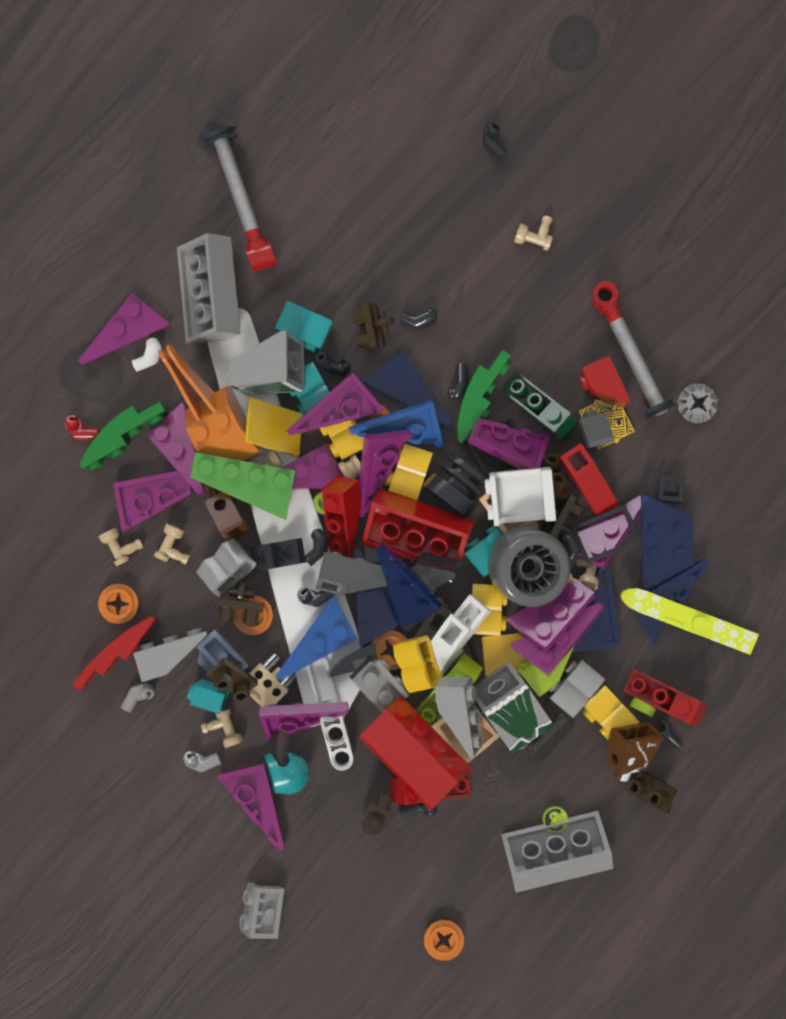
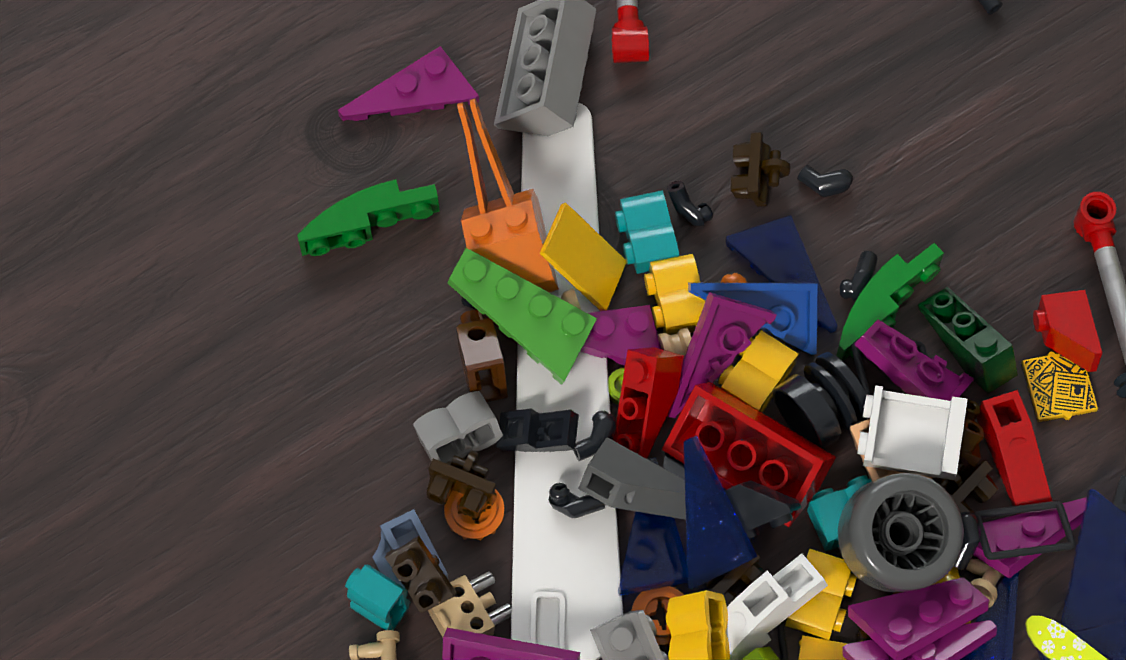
camera: 20 degrees right, 20 degrees down
(78, 430) = (307, 196): red arm -> none
(111, 594) = (280, 427): orange gear -> none
(120, 553) = (305, 347): tan piece -> none
(121, 647) = (273, 498): red slope -> none
(135, 694) = (270, 574): light grey arm -> none
(148, 496) = (379, 308): magenta wing -> none
(150, 356) = (440, 130): white arm -> none
(162, 659) = (327, 532): light grey slope -> none
(166, 550) = (377, 389): tan piece -> none
(175, 444) = (438, 246): magenta wing -> none
(269, 366) = (601, 171): light grey slope -> none
(305, 325) = (662, 146): teal brick -> none
(324, 636) = (571, 562): blue wing -> none
(343, 403) = (689, 250): magenta wing -> none
(346, 664) = (591, 606): black slope -> none
(541, 238) = (1023, 123): tan piece -> none
(594, 429) = (1042, 385): dark grey slope -> none

